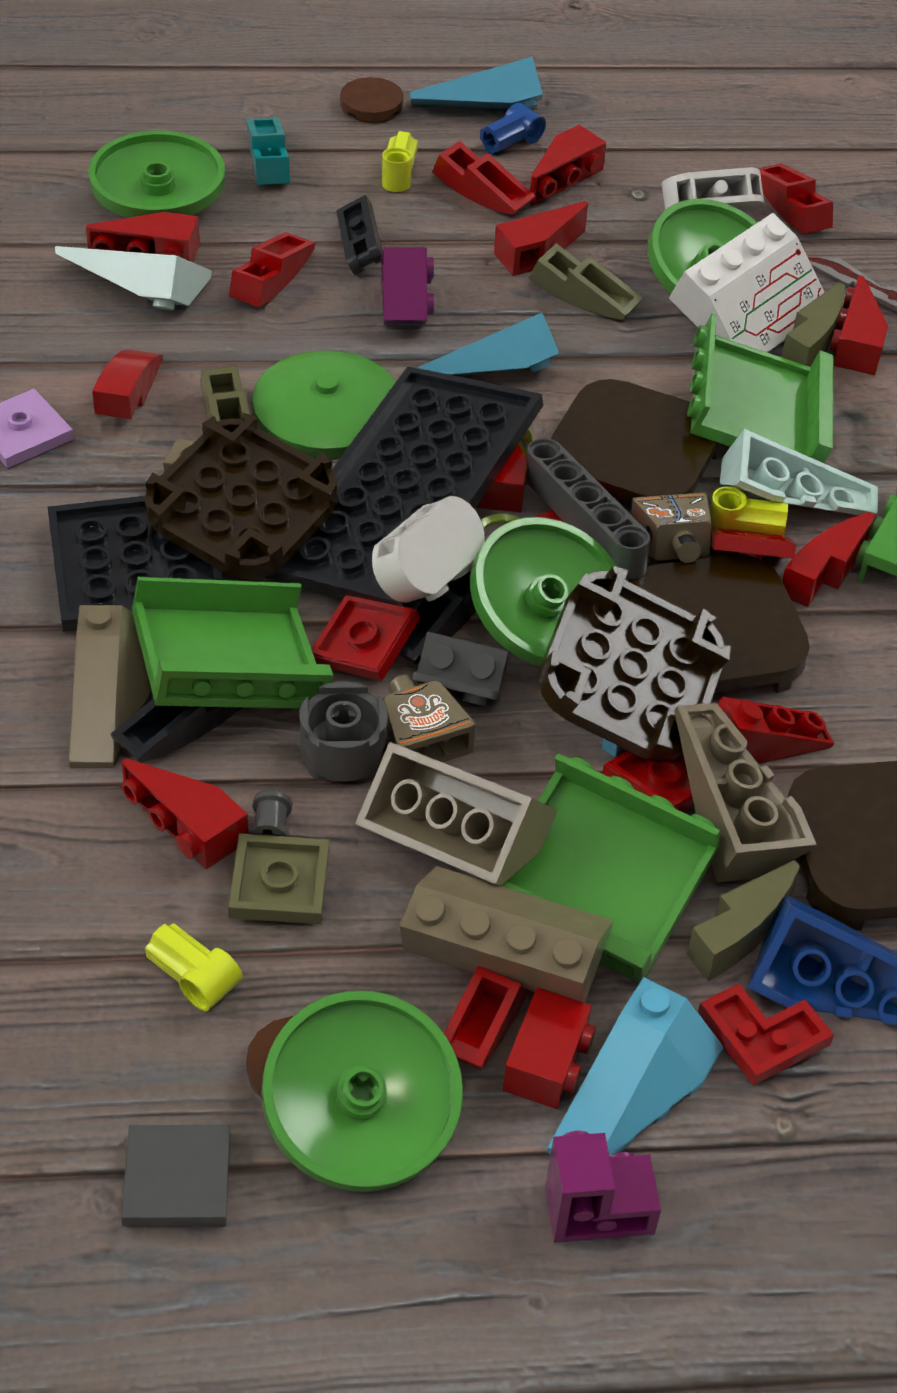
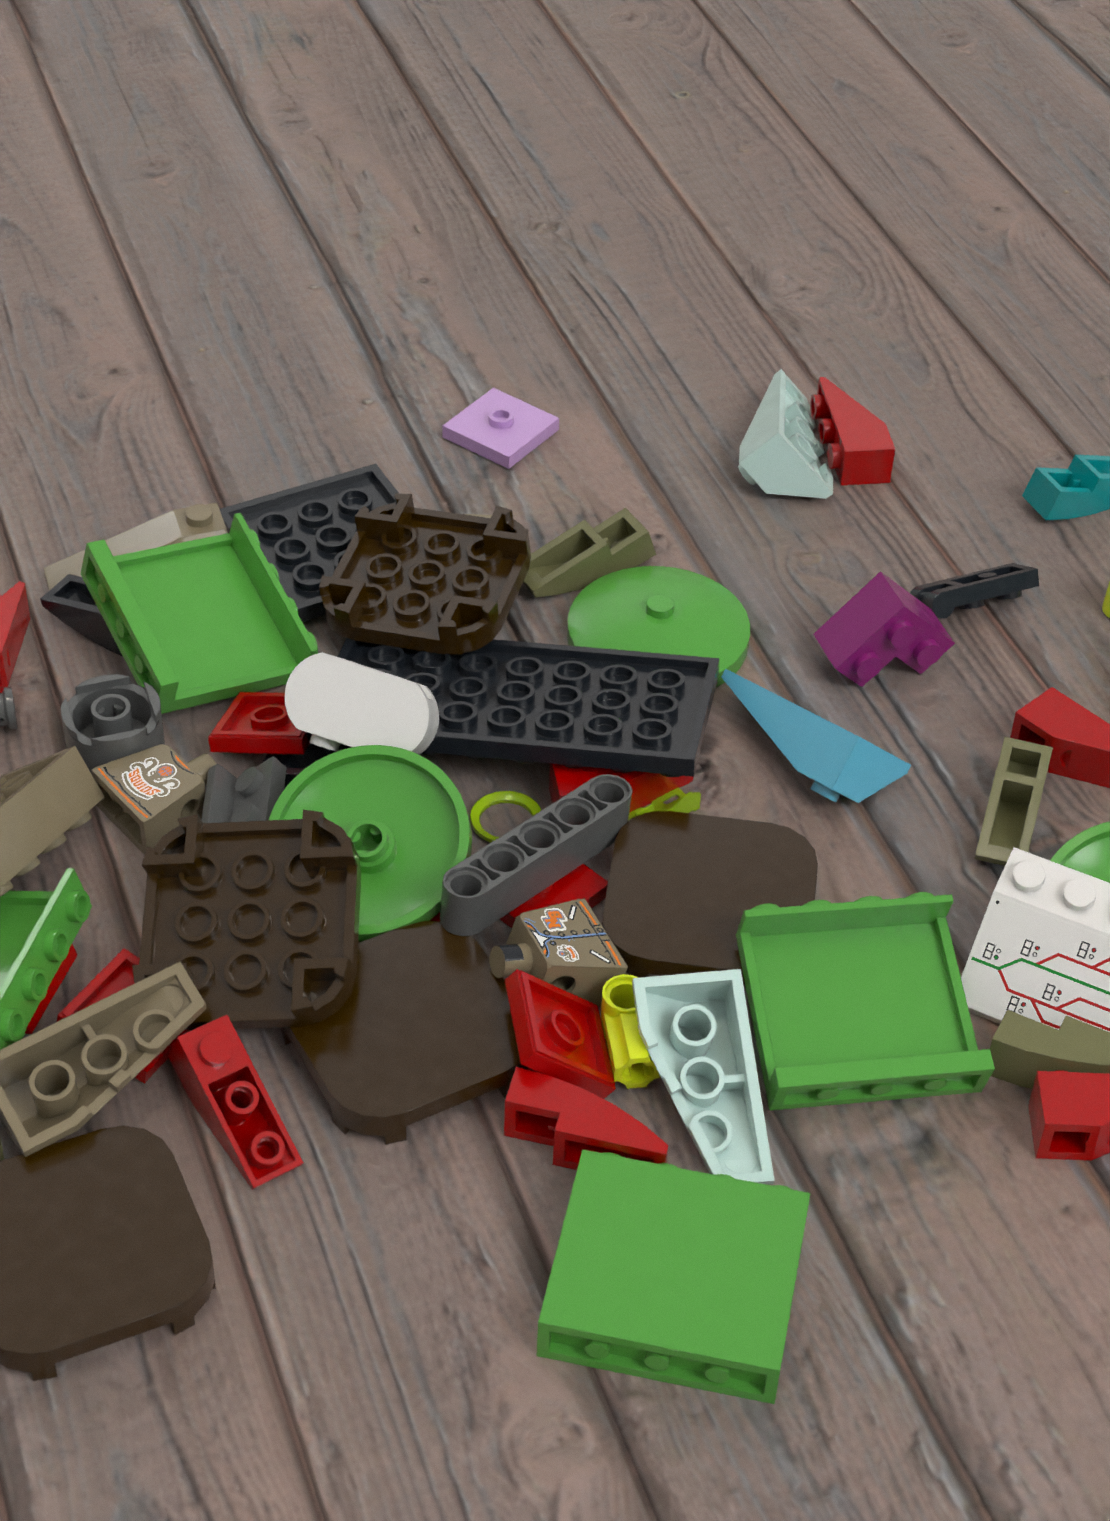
camera: 75 degrees right, 5 degrees down
(125, 383) = (603, 471): red slope -> none
(156, 174) = (959, 409): bright green dish -> none
(270, 268) = (866, 534): red slope -> none

